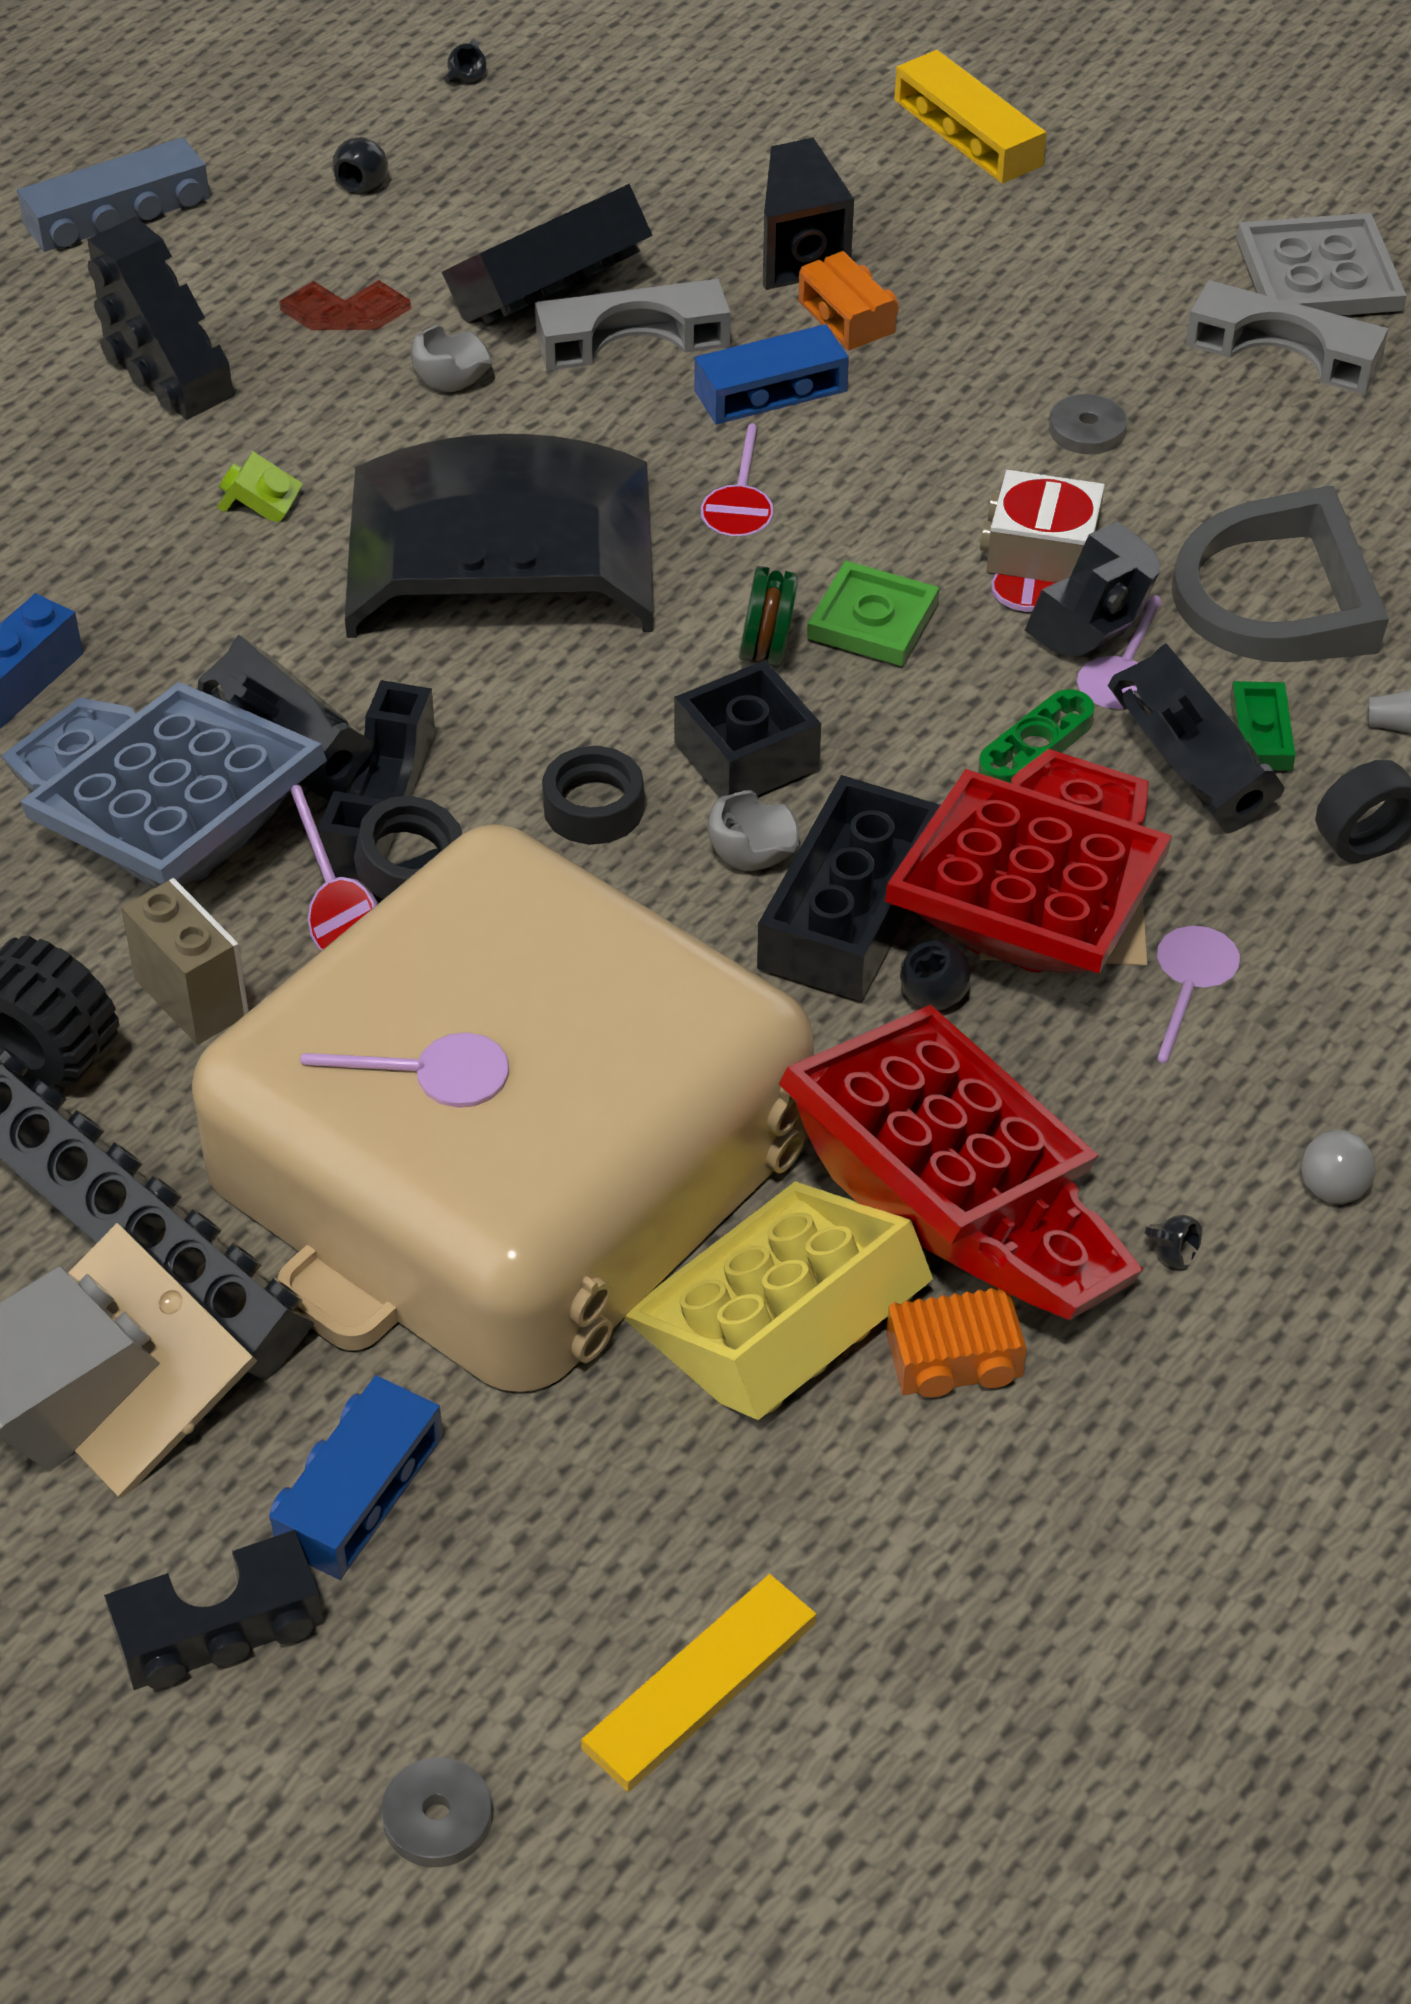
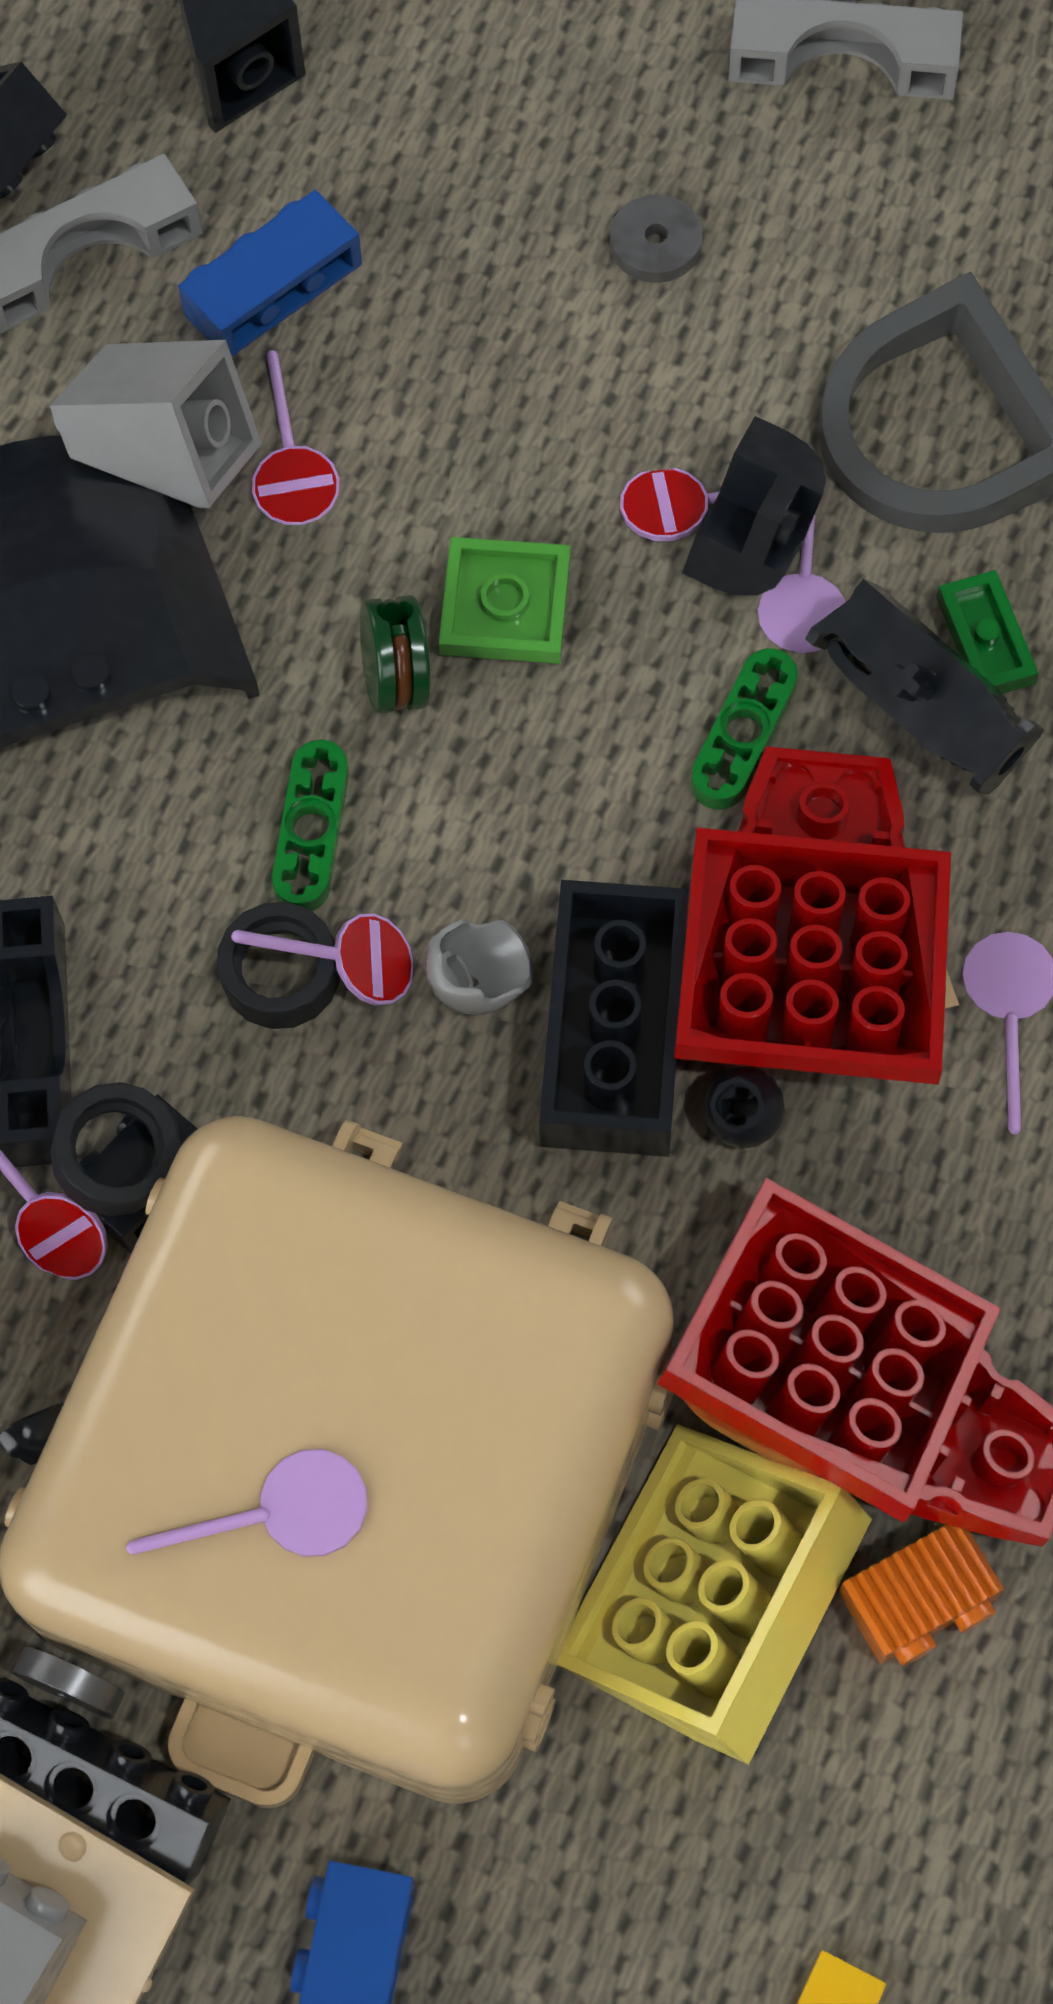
camera: 15 degrees left, 20 degrees up
(220, 1199) = (68, 1682): none -> flat silver piece
(648, 432) = (161, 417): none -> light grey slope
(655, 700) = (301, 782): none -> green beam
(664, 798) = (367, 953): none -> piece
(747, 731) = (426, 832): black brick -> none
(847, 300) = (322, 132): orange brick -> none
(1040, 525) = (660, 421): piece -> none

